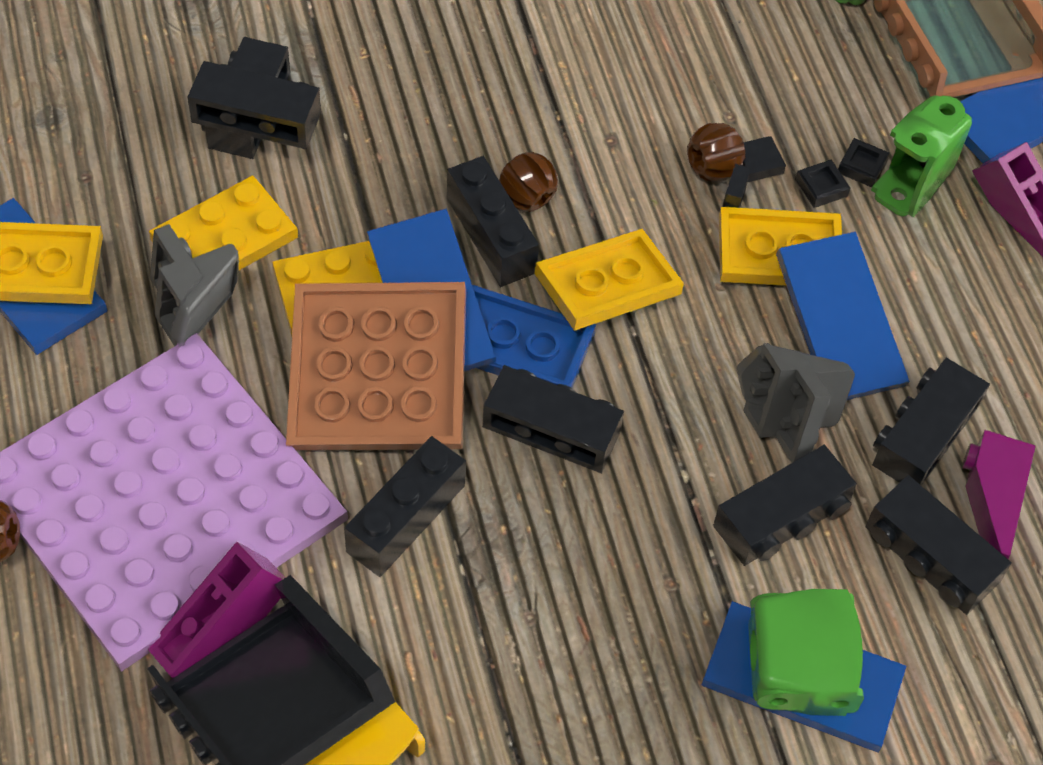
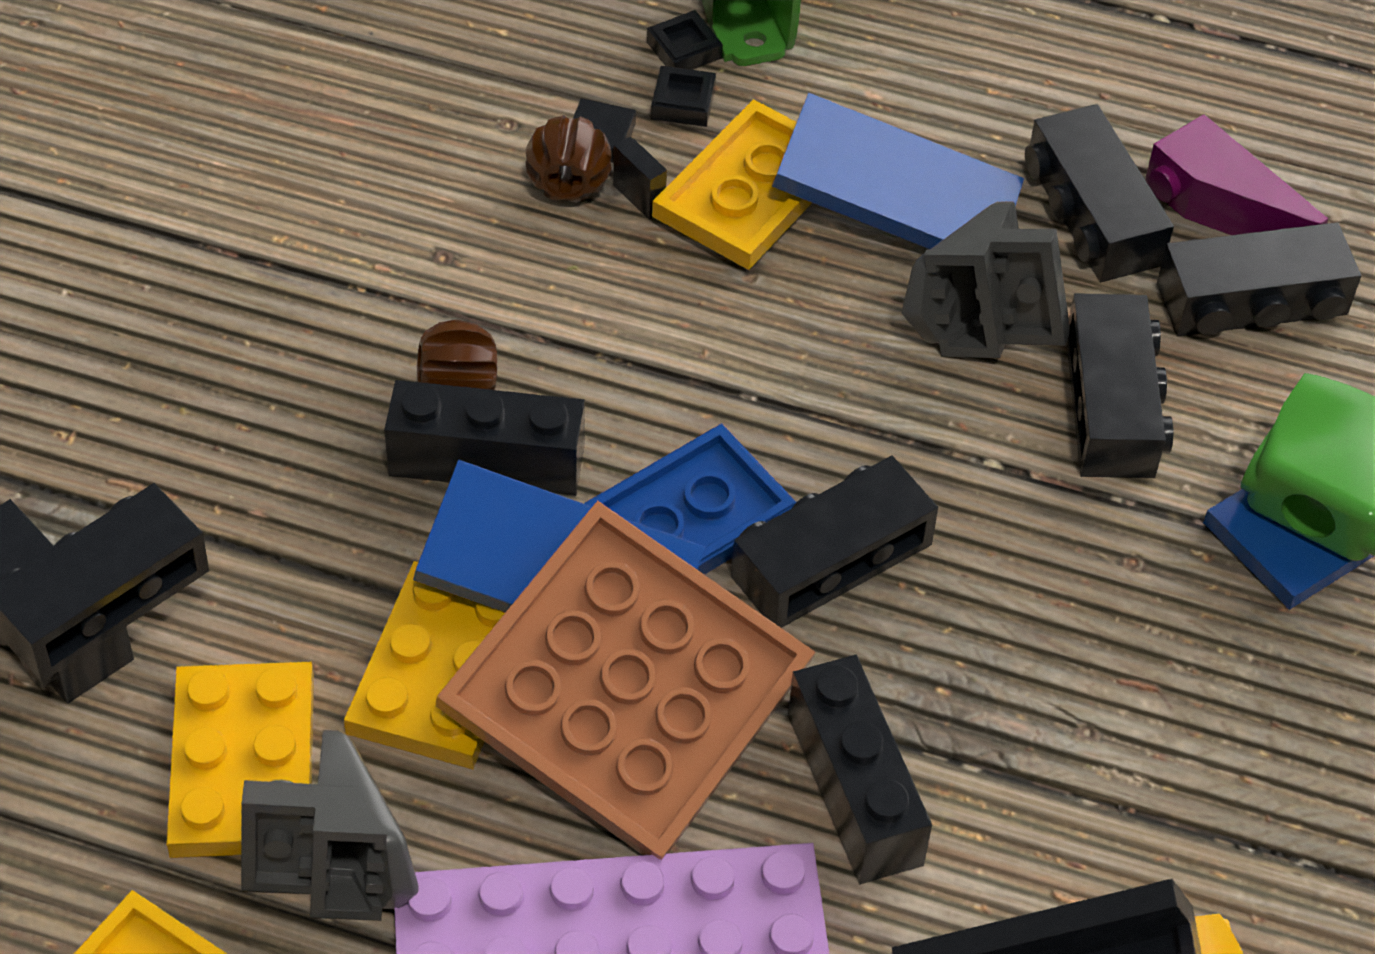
camera: 55 degrees left, 5 degrees down
(608, 279) = (671, 369): yellow plate -> none

